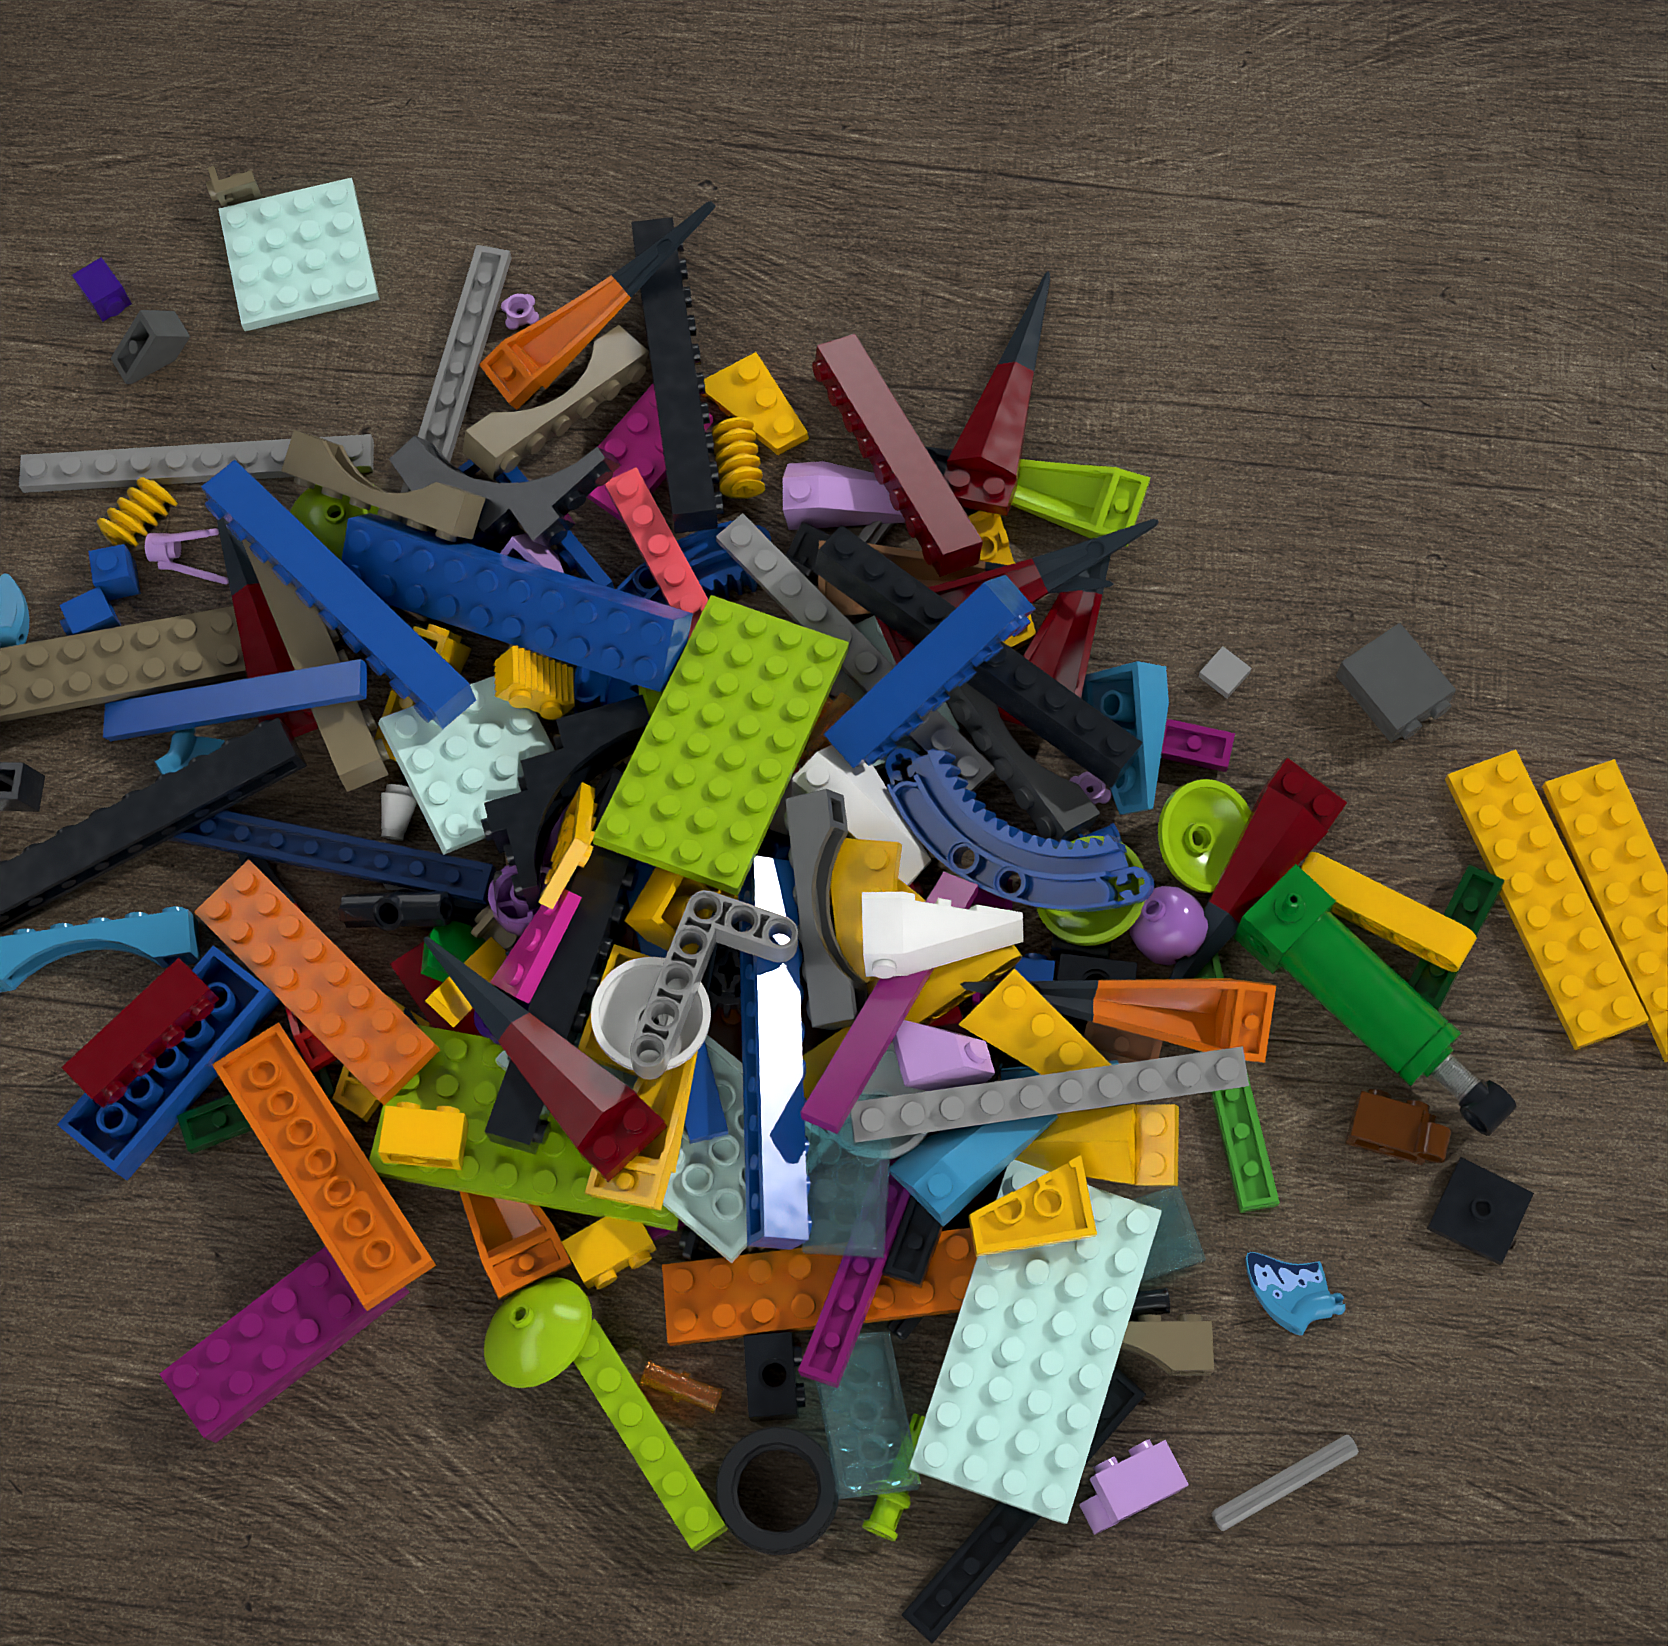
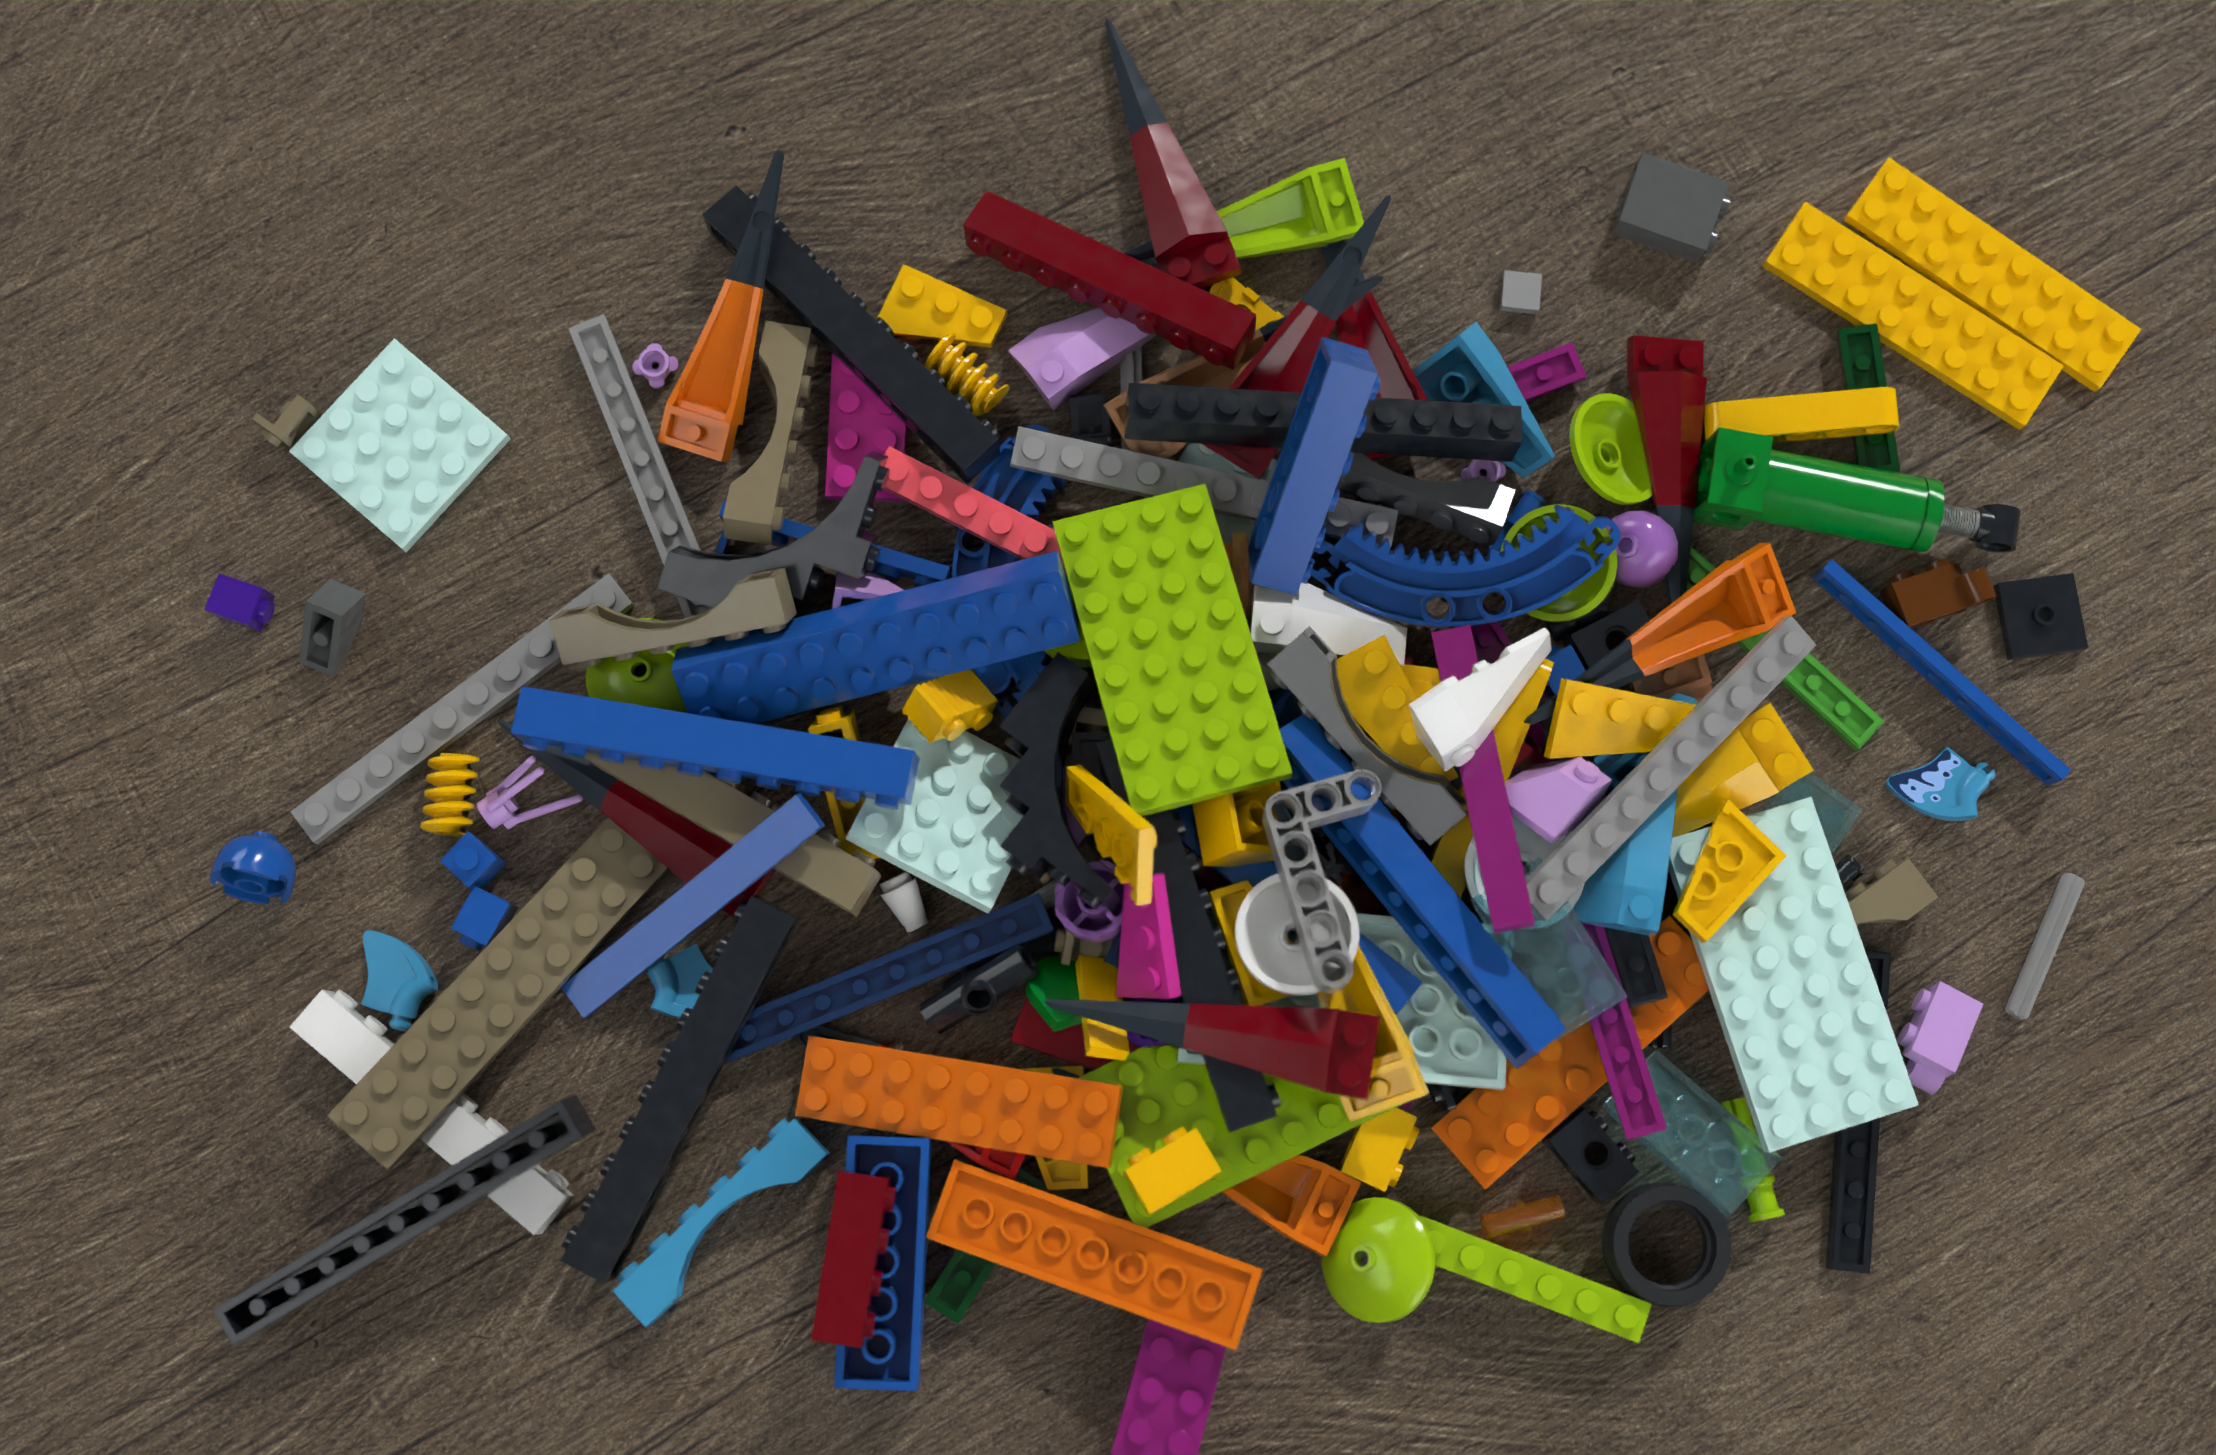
camera: 45 degrees left, 10 degrees up
(1355, 1197) = (1941, 673): none -> blue tile

